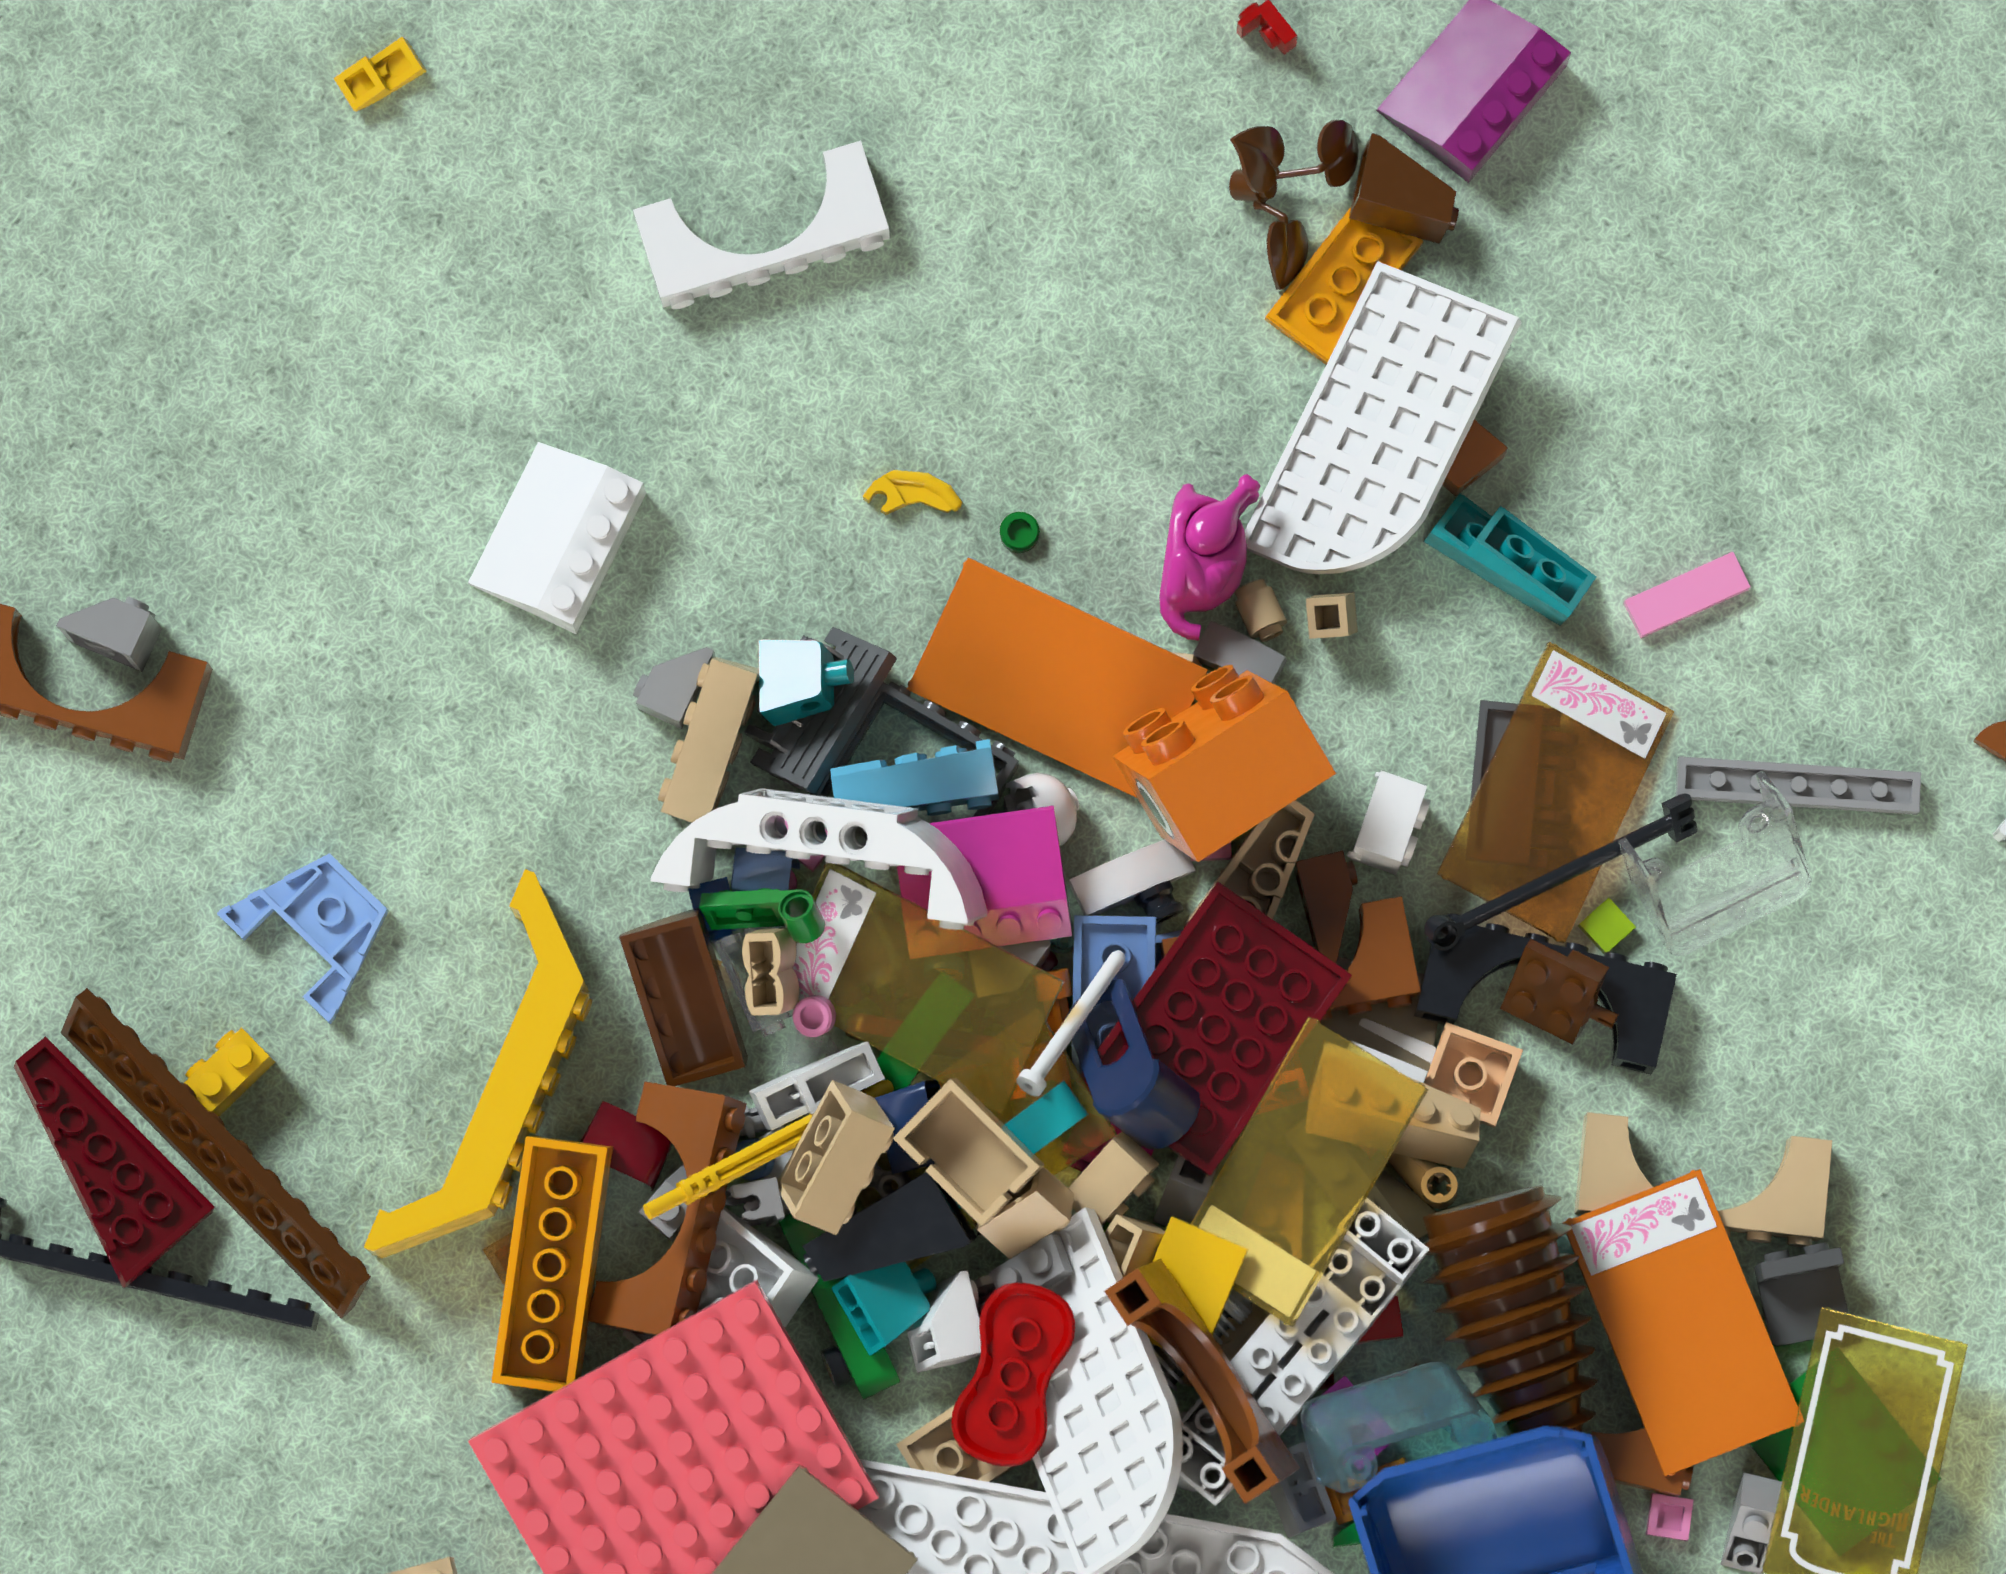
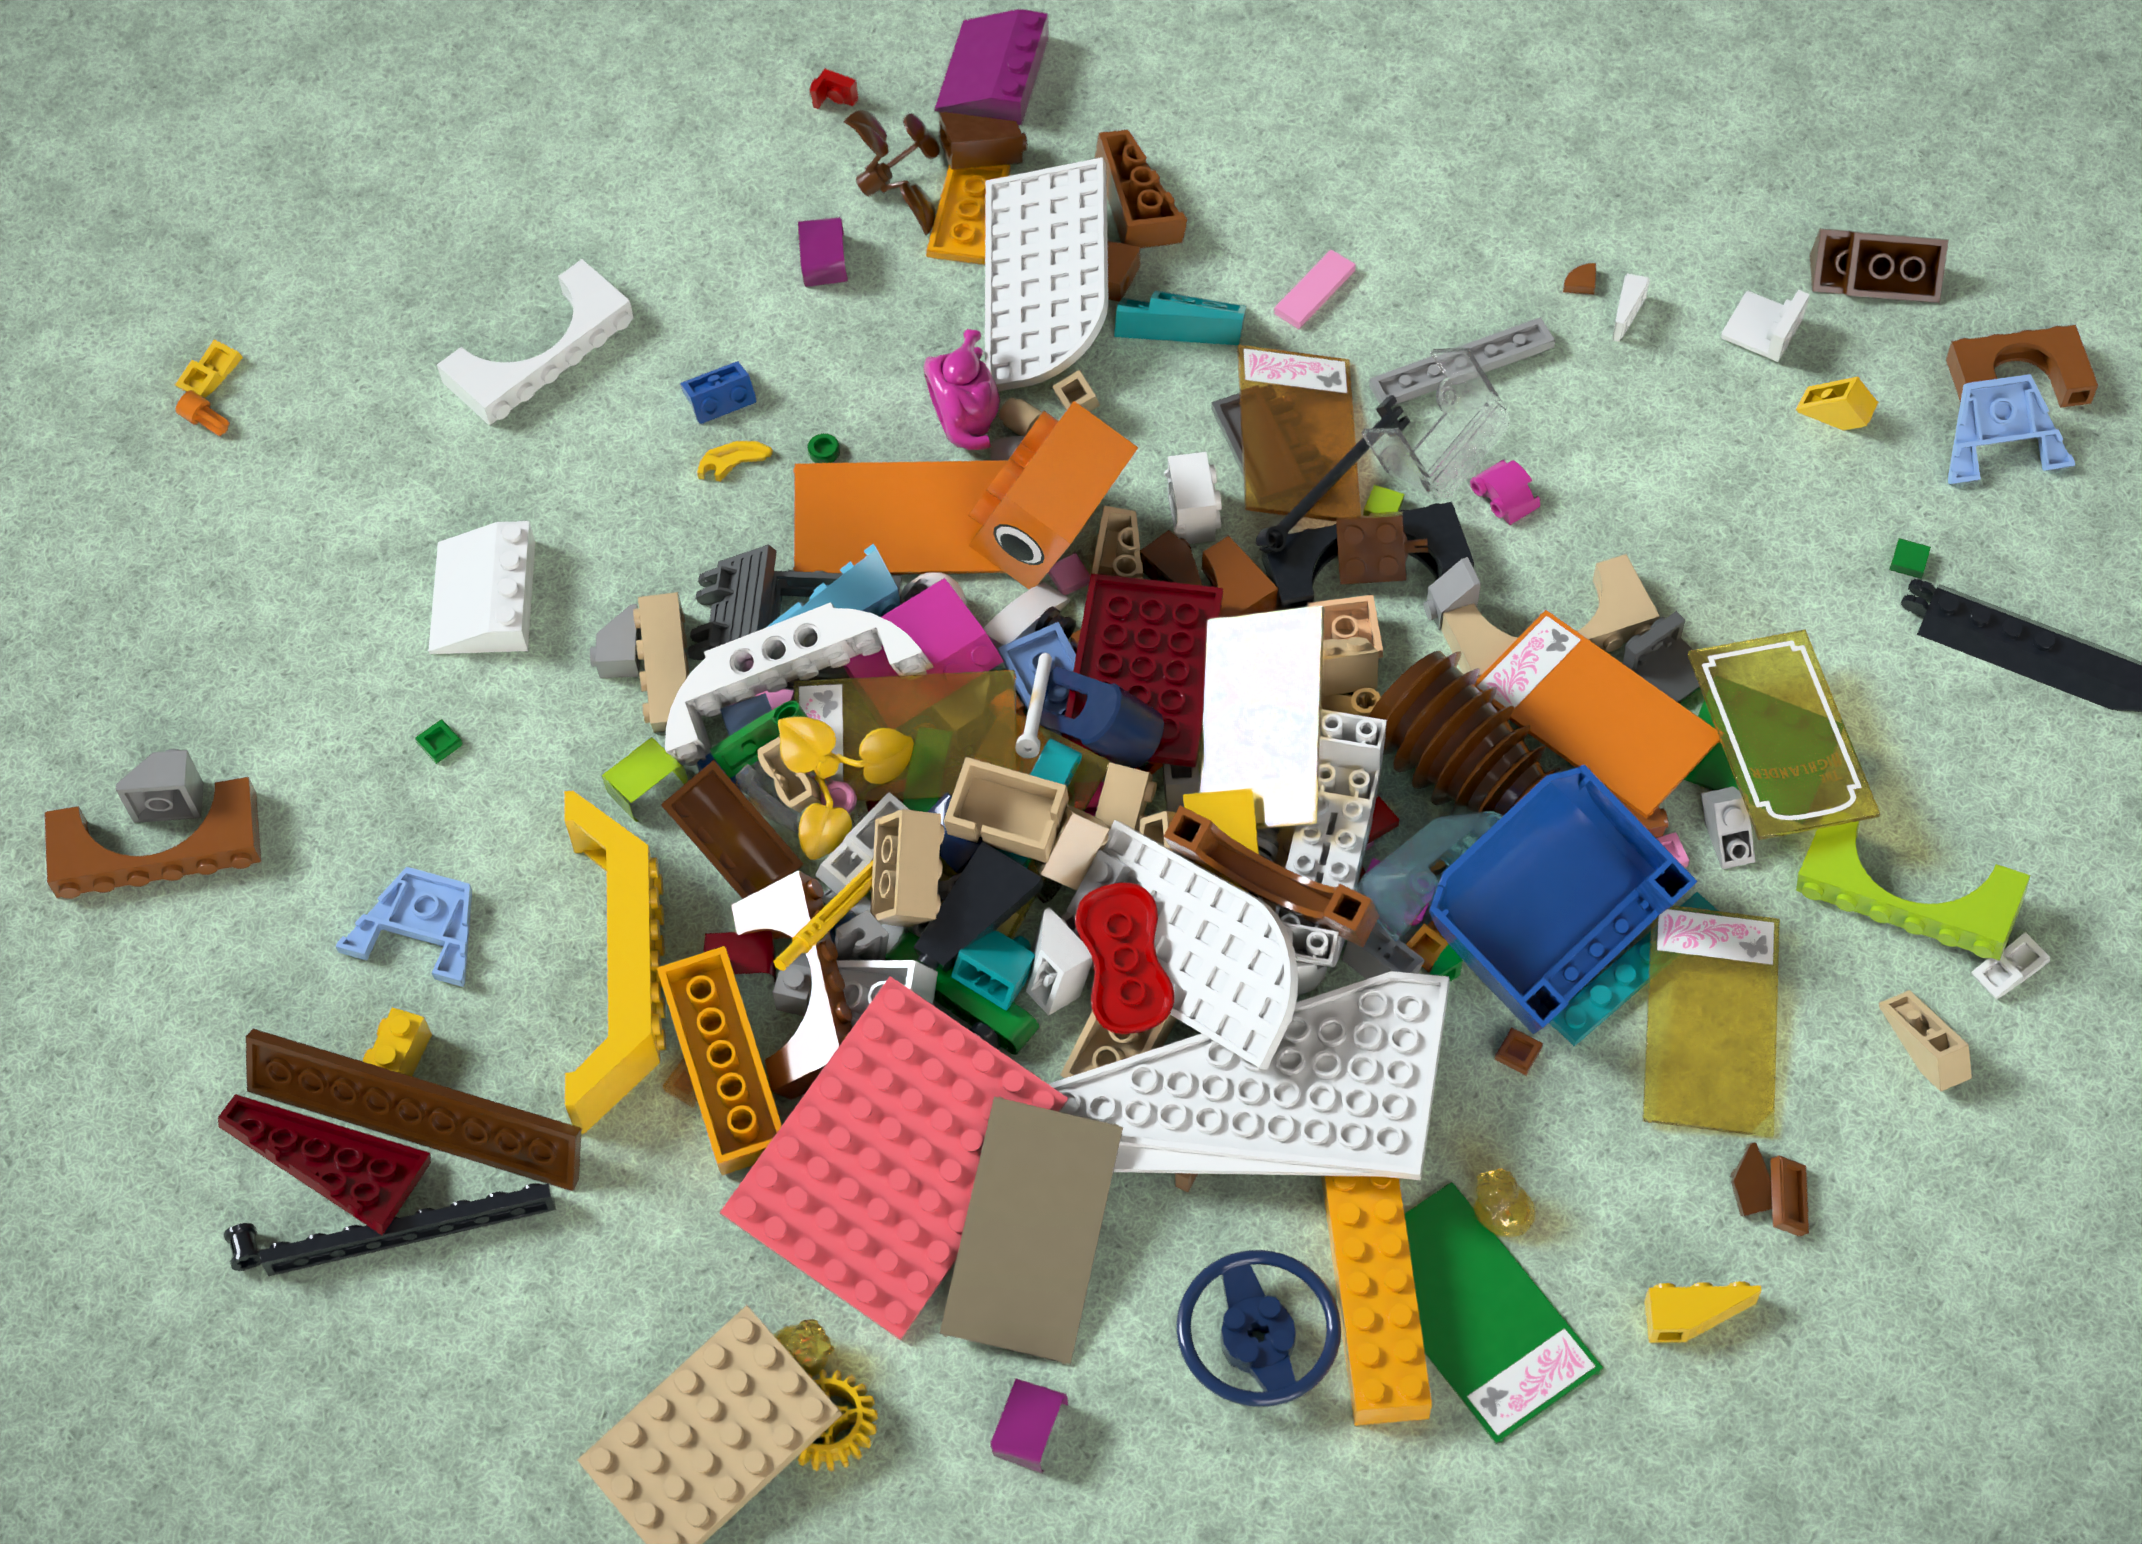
camera: 25 degrees left, 20 degrees down
(343, 126) = (197, 410): none -> orange piece
(431, 705) = (438, 741): none -> green tile
(621, 868) = (640, 772): none -> lime piece
(789, 978) = (808, 747): none -> yellow plant
(798, 679) = (710, 588): torso -> none
(937, 395) = (719, 392): none -> blue bracket
(1142, 260) = (822, 251): none -> magenta piece
(1542, 374) = (1138, 201): none -> dark orange wedge
(1610, 1093) = (1452, 590): none -> light grey slope
(1753, 979) = (1508, 490): none -> dark pink cylinder

